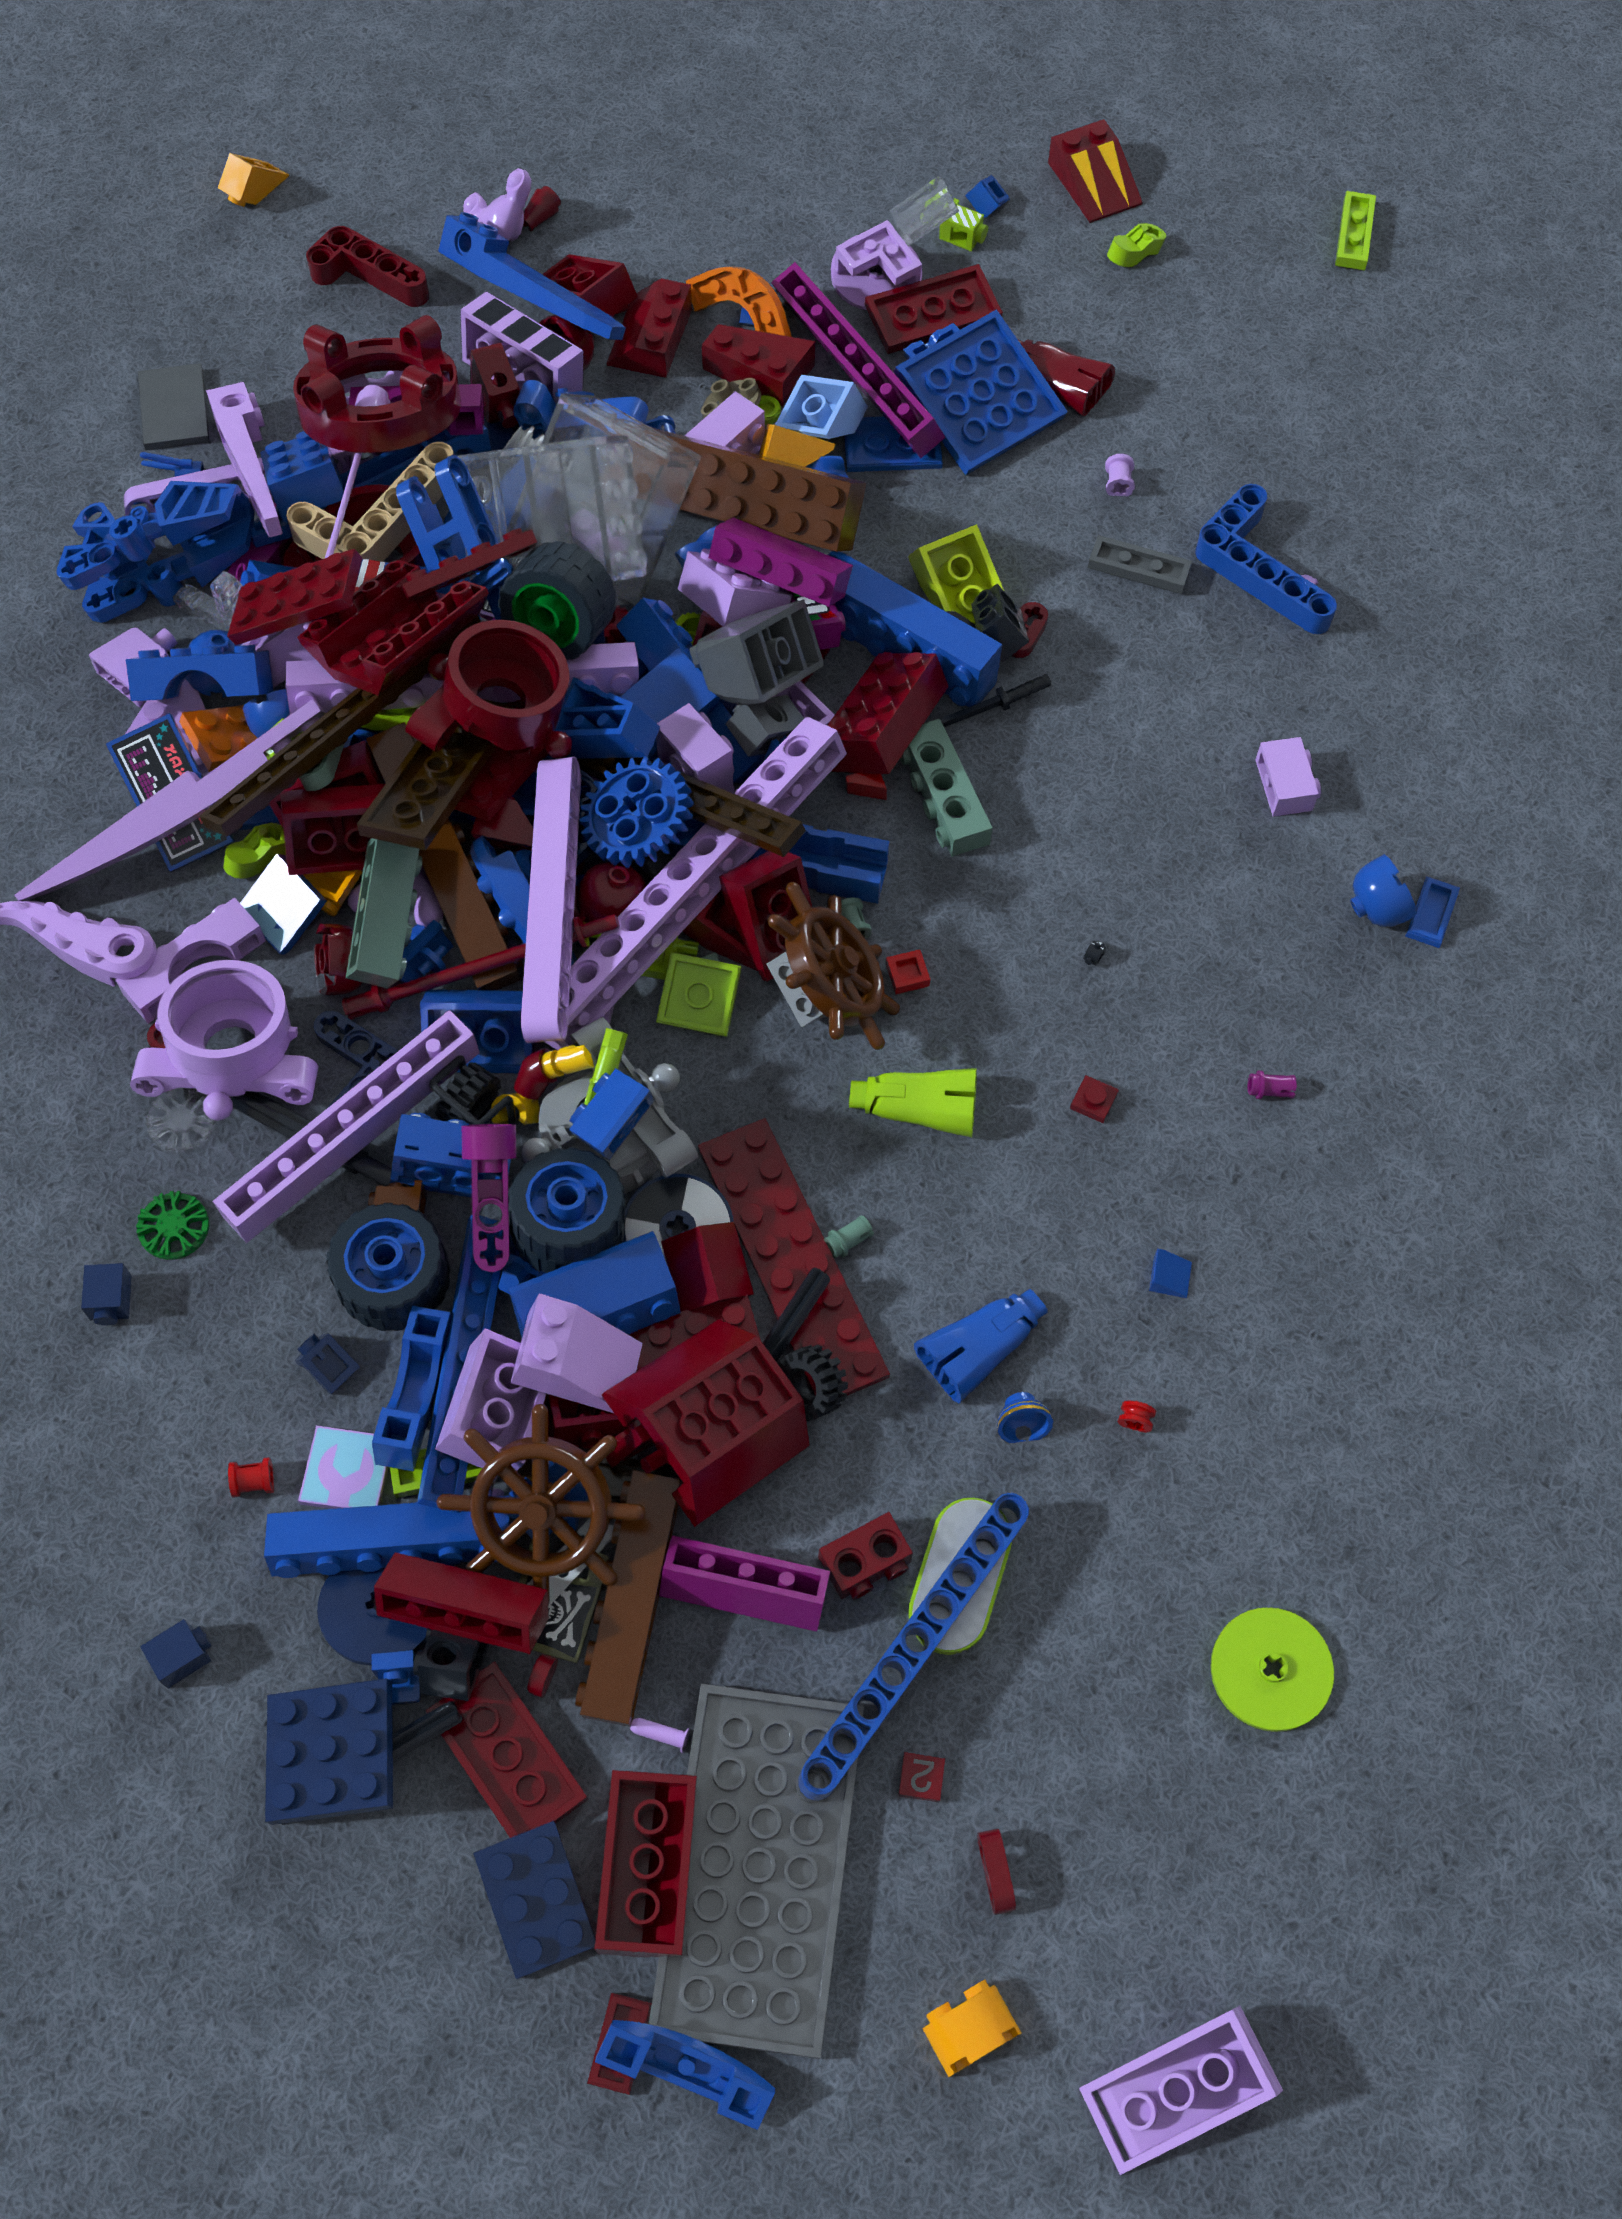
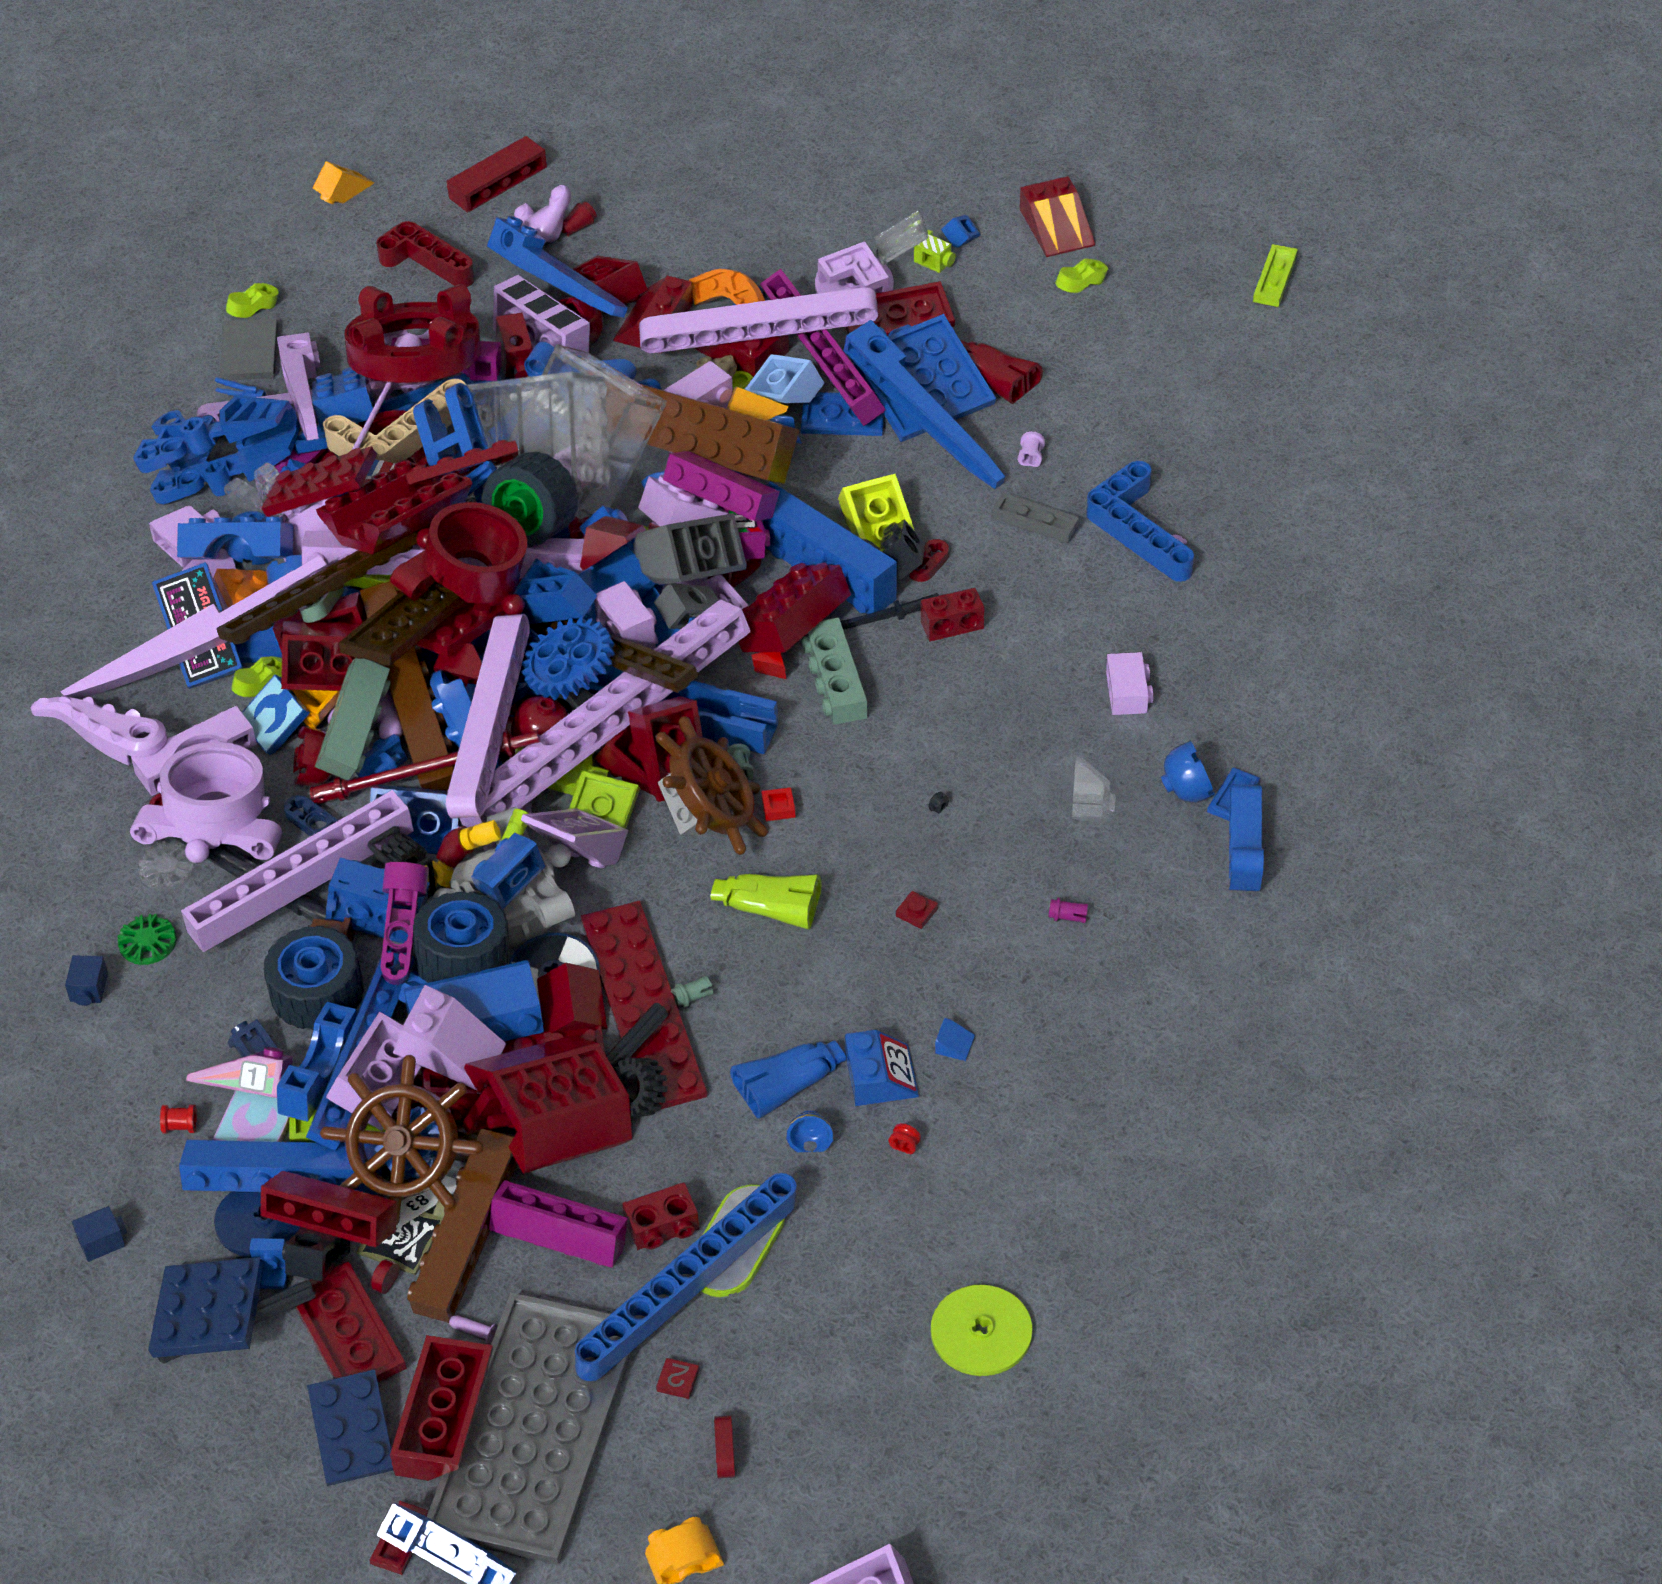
camera: 10 degrees right, 15 degrees down
(167, 341) = (254, 298): none -> lime piece
(335, 1407) = (252, 1074): none -> slope
(434, 155) = (496, 174): none -> dark red brick
(660, 646) = (606, 537): none -> dark red slope
(684, 1042) = (581, 833): none -> lavender slope
(782, 333) = (758, 320): none -> lavender beam
(962, 408) = (890, 376): none -> blue piece
(1069, 701) = (952, 614): none -> dark red brick
(1089, 1323) = (879, 1068): none -> blue slope
(1271, 926) = (1091, 793): none -> clear slope
(1462, 973) = (1245, 838): none -> blue beam

